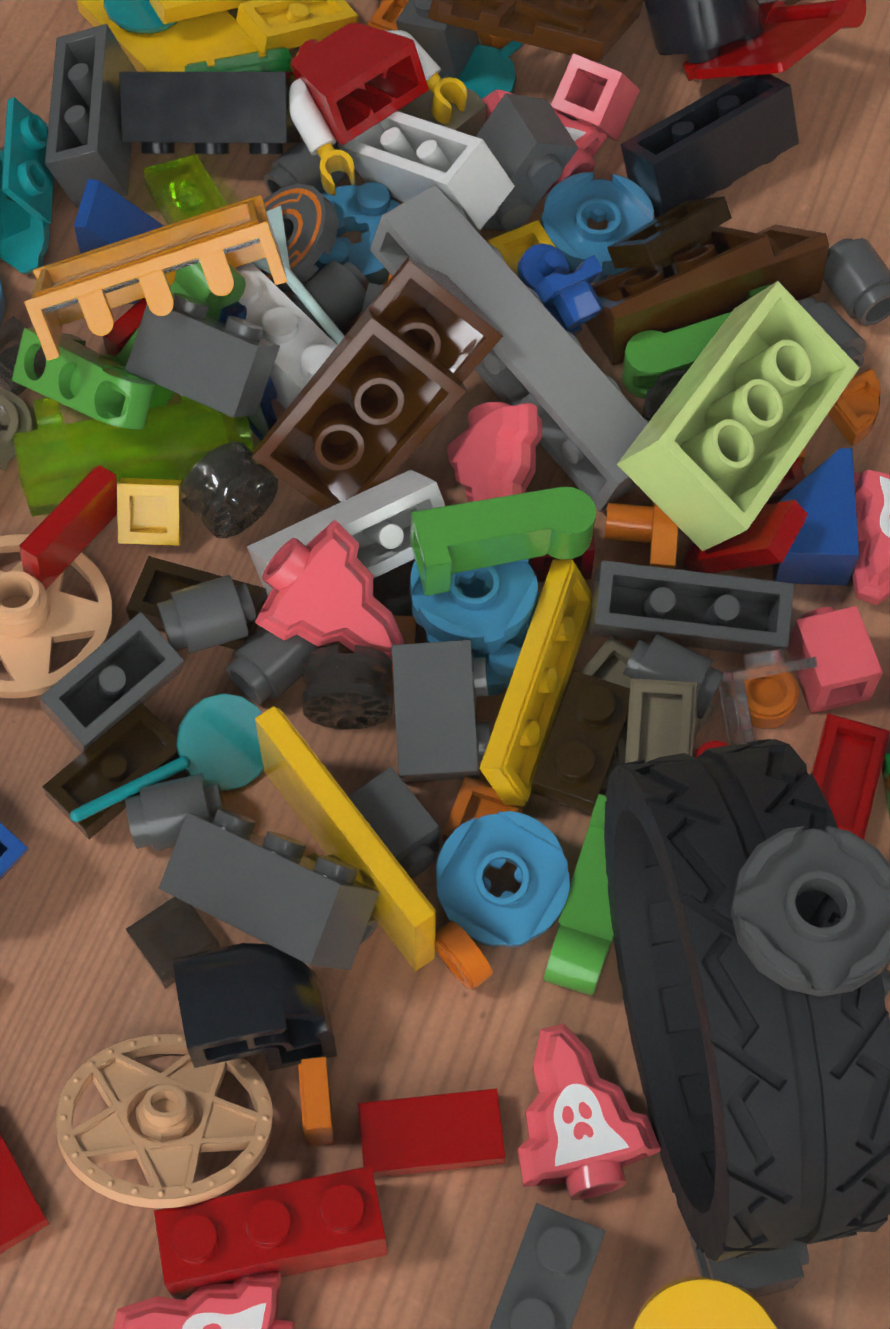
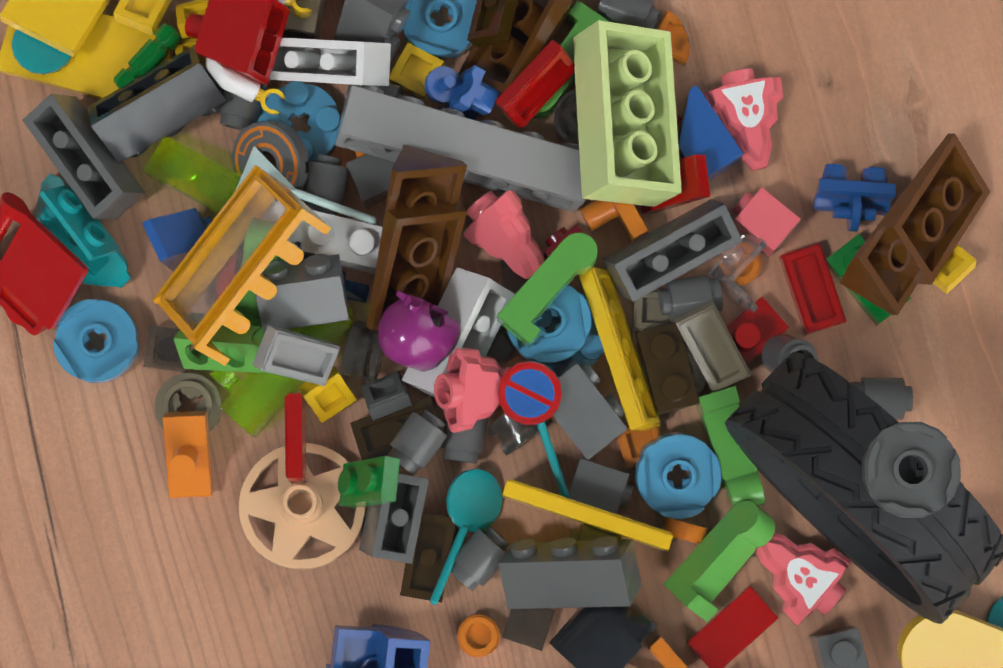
camera: 30 degrees left, 20 degrees up
(100, 910) = (478, 635): none -> orange tile
(108, 612) = (369, 482): none -> green plate
(140, 415) = (296, 355): none -> light grey tile
(214, 556) = (386, 396): none -> dark grey tile
(296, 485) = (410, 335): none -> magenta helmet
(381, 640) = (531, 396): none -> piece
(483, 1016) = (720, 557): none -> bright green leg
(653, 326) = (536, 84): none -> red tile

